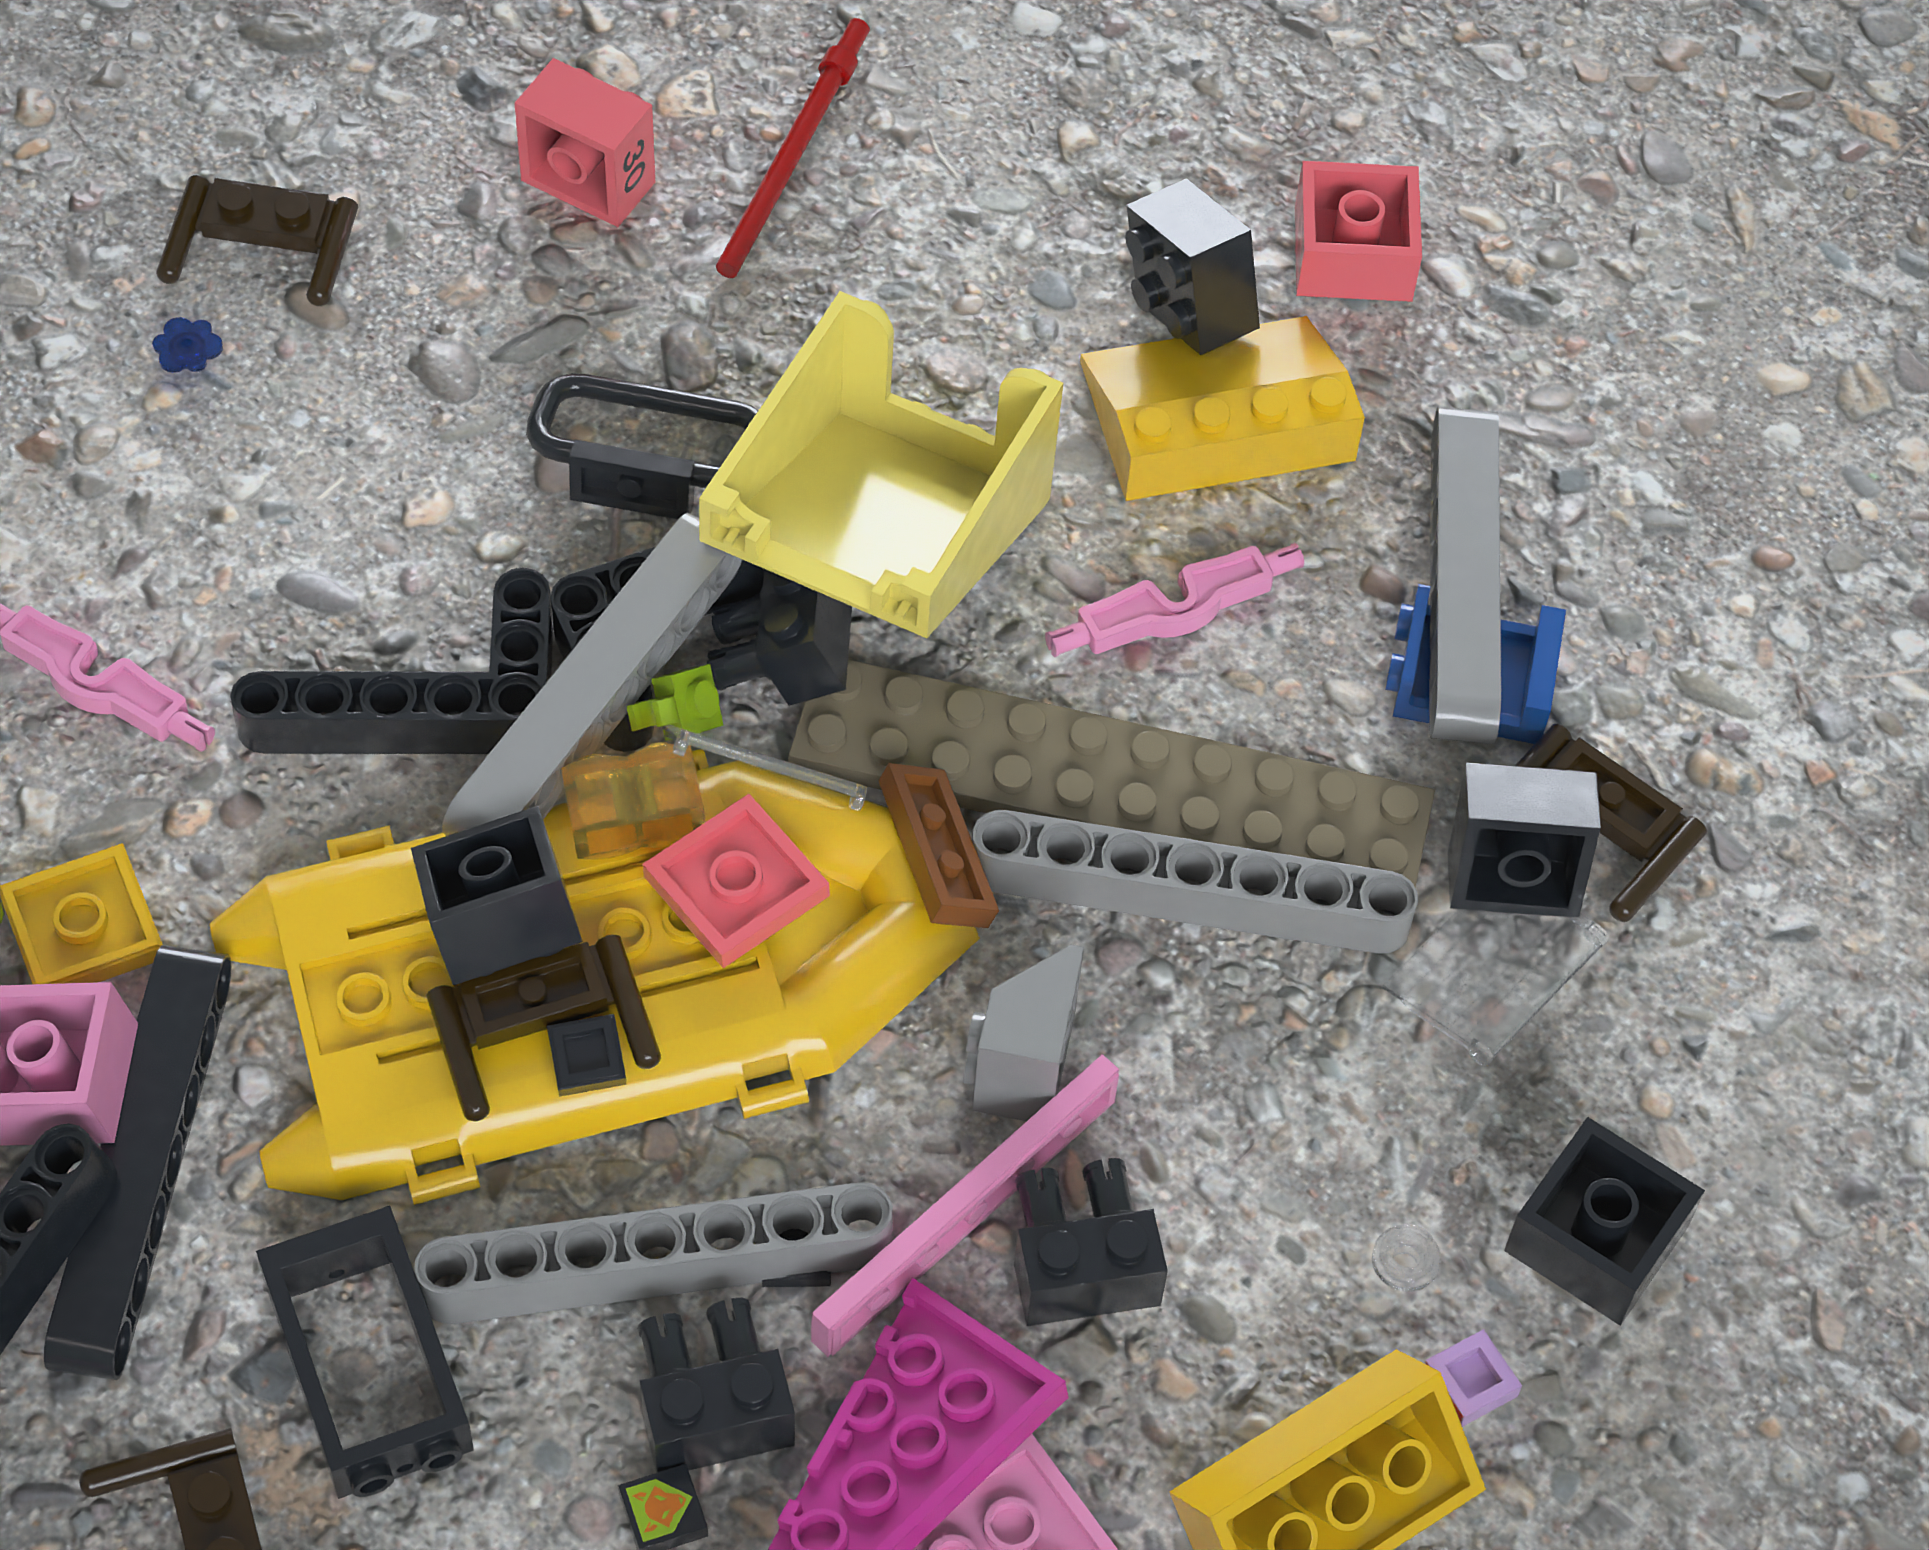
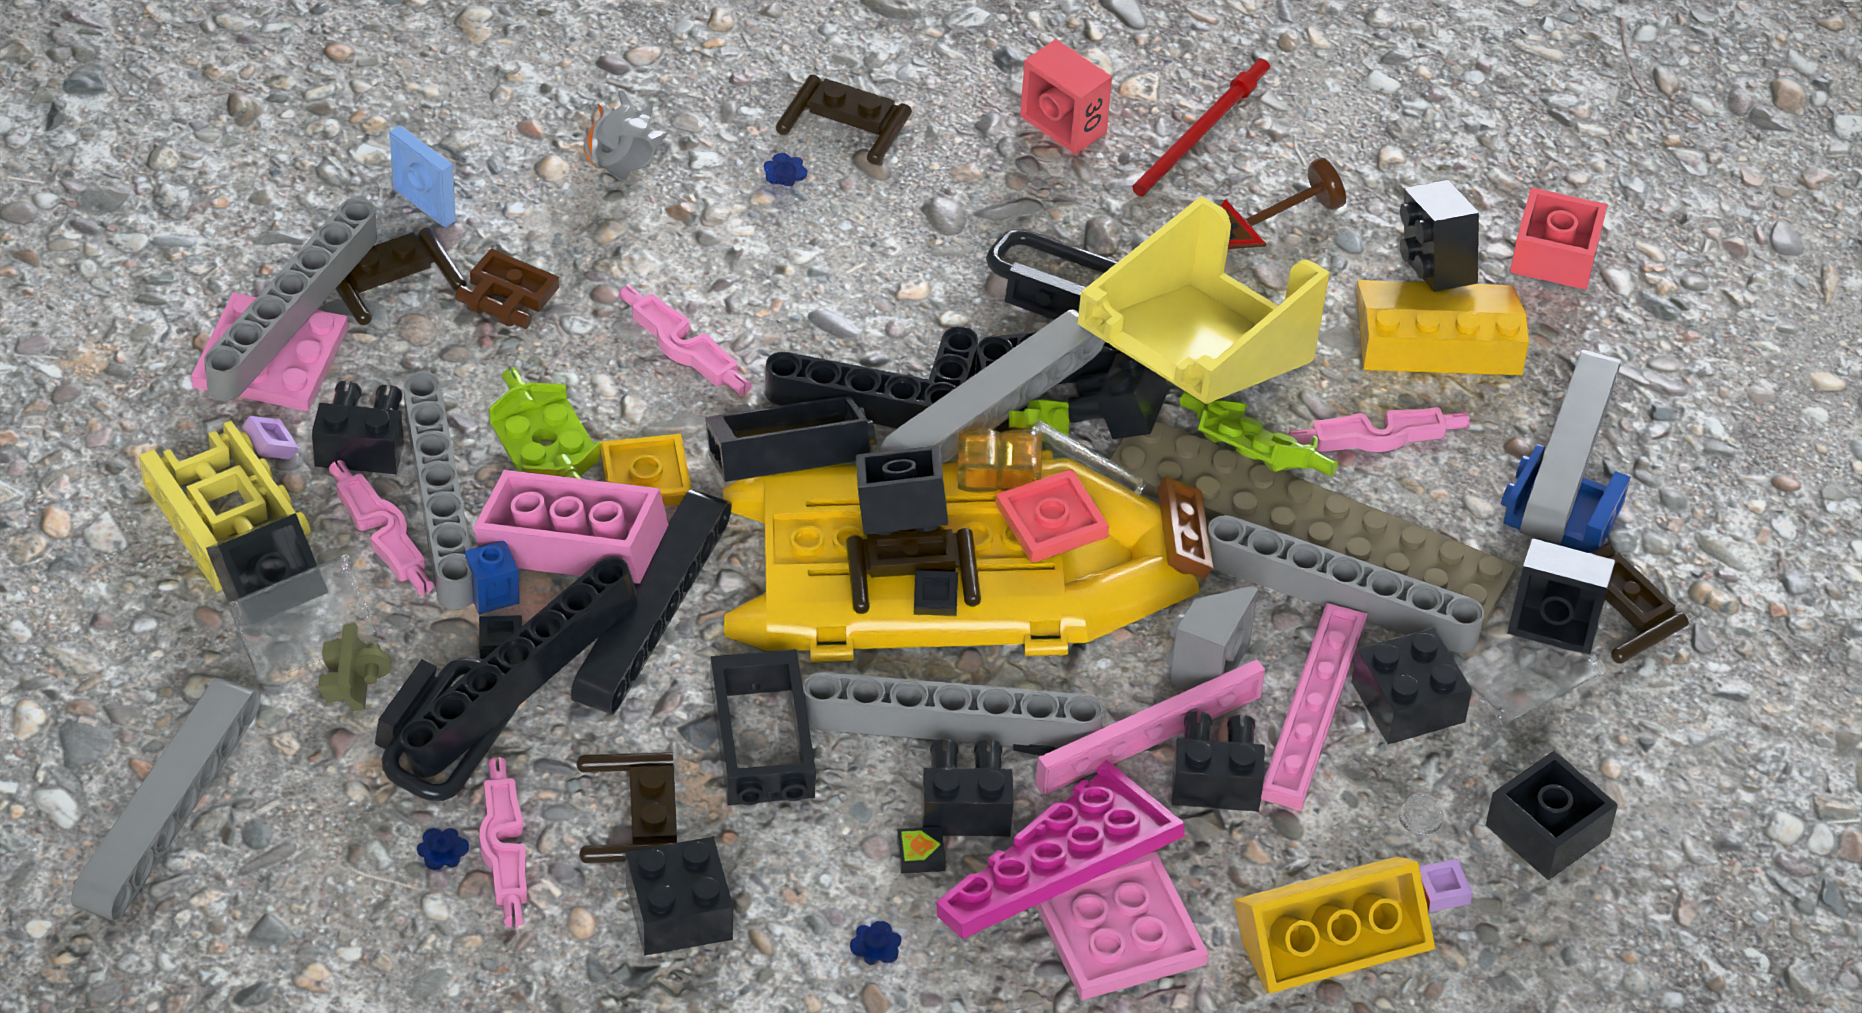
camera: 15 degrees right, 10 degrees down
(295, 823) = (788, 438): none -> black window
(998, 210) = (1325, 186): none -> reddish brown piece
(1012, 668) = (1226, 422): none -> lime plate
(1199, 1102) = (1313, 707): none -> bright pink tile
(1338, 1038) = (1411, 685): none -> black brick

